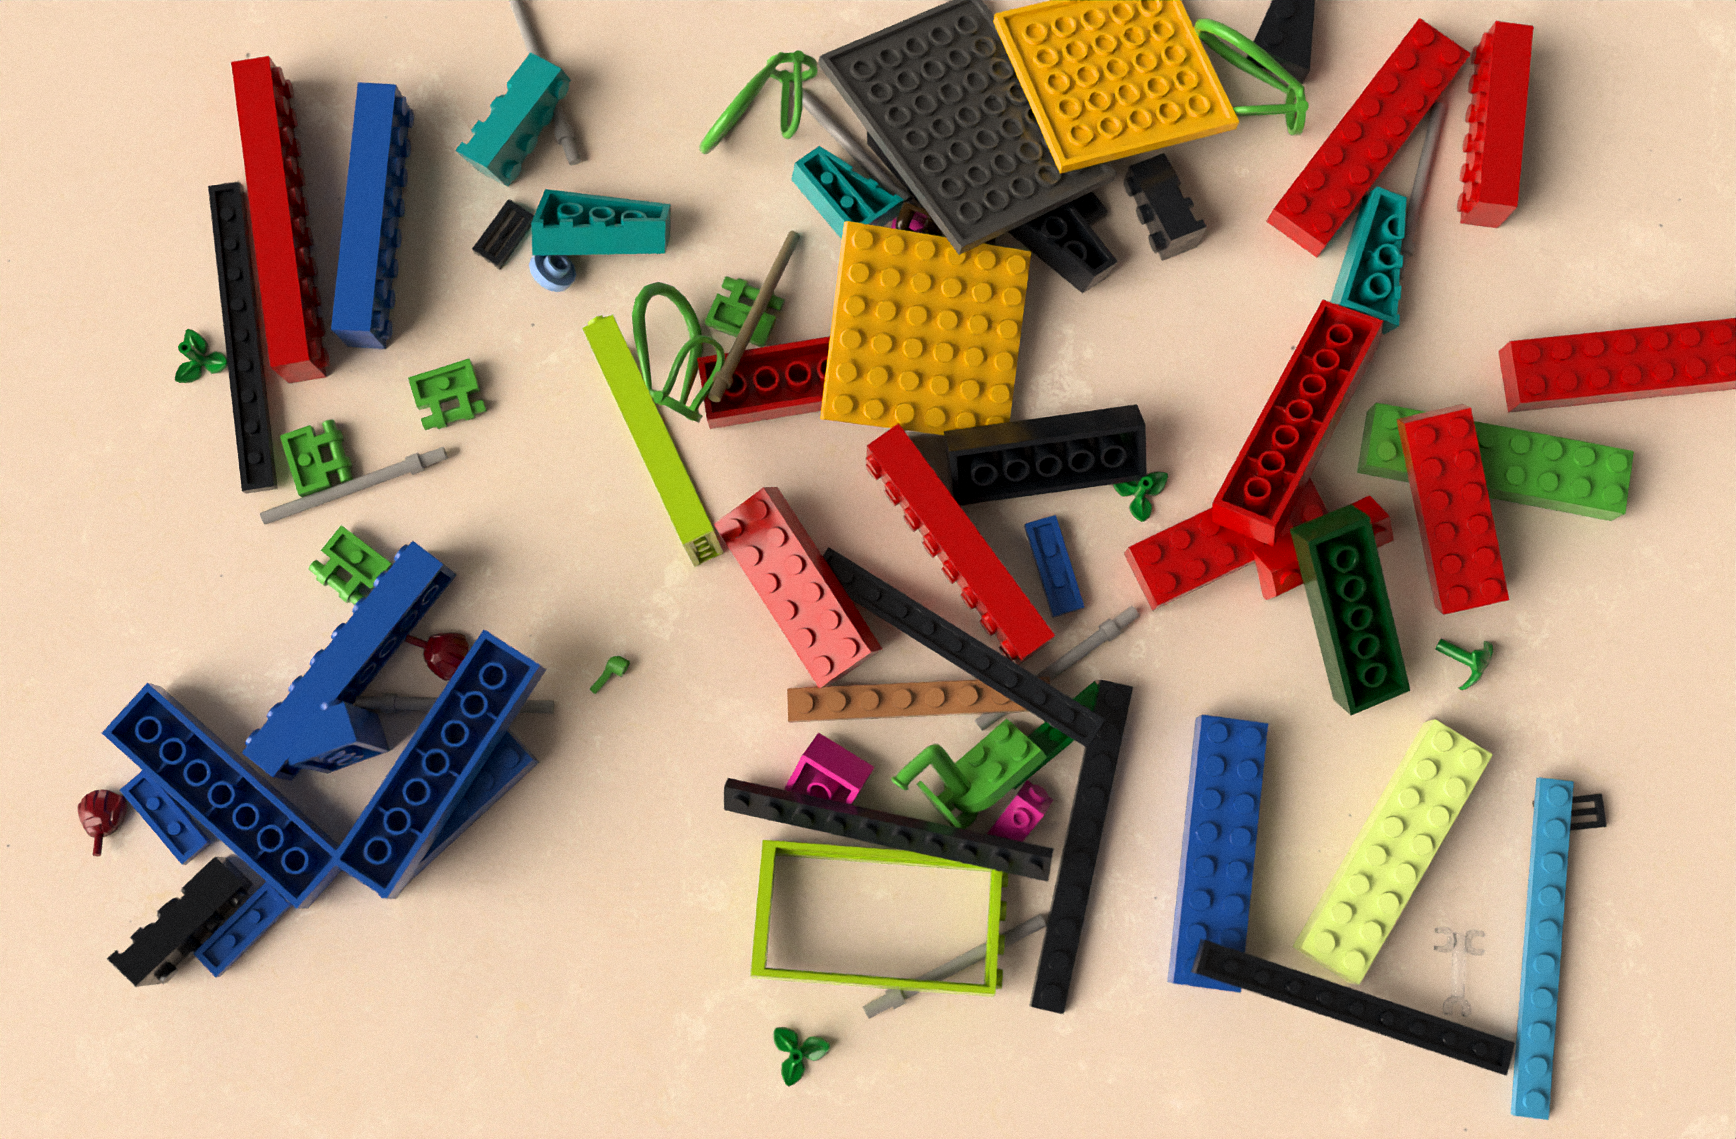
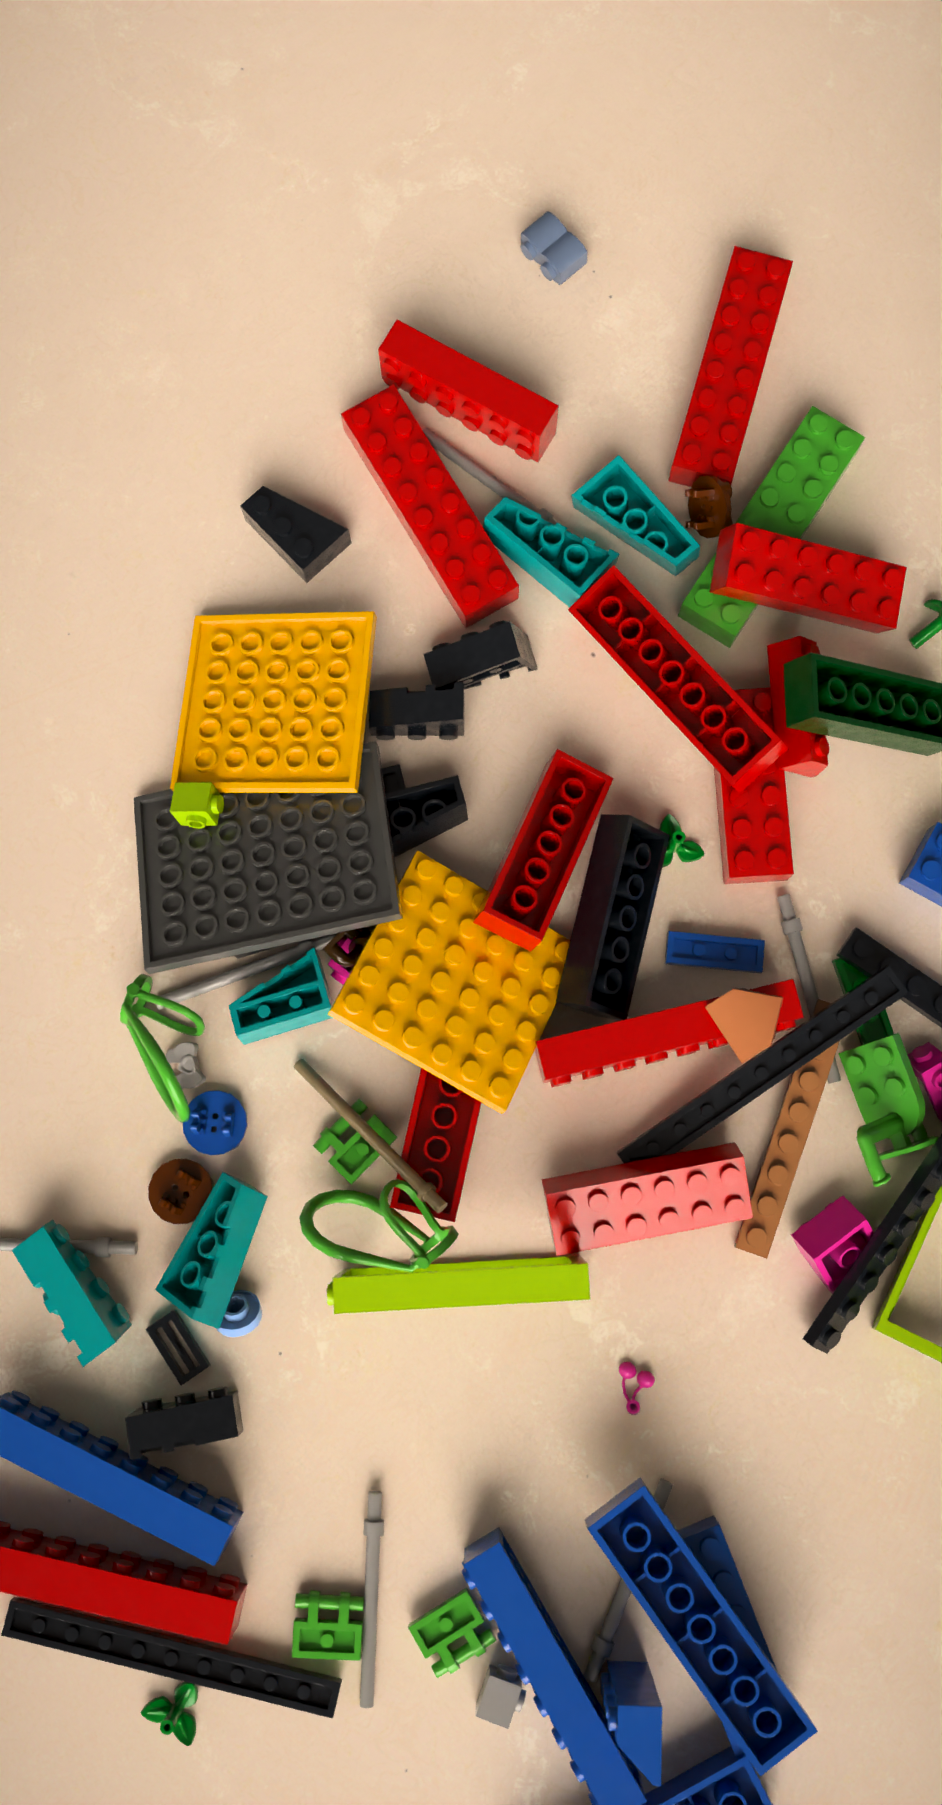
camera: 65 degrees left, 0 degrees up
(312, 627) = (500, 1695): none -> light grey brick
(440, 261) = (183, 1421): none -> black wedge
(442, 652) = (573, 1571): dark red piece -> none
(444, 385) = (307, 1467): bright green plate -> none
(616, 665) = (651, 1403): bright green hand -> none
(635, 653) = (644, 1379): none -> dark pink piece
(654, 181) = (172, 1204): none -> reddish brown plate
(715, 197) = (230, 1123): none -> blue plate
(760, 133) = (186, 1056): none -> light grey piece
(989, 41) = (196, 804): none -> lime brick
(996, 603) = (746, 1020): none -> nougat slope
(1080, 364) = (543, 851): none -> red brick
(1206, 31) = (325, 569): bright green animal -> none
(1243, 241) = (480, 656): none -> black wedge
(1446, 324) = (636, 516): none -> teal wedge
(1487, 391) = (709, 506): none -> reddish brown plate
(1682, 149) = (553, 248): none -> sand blue brick

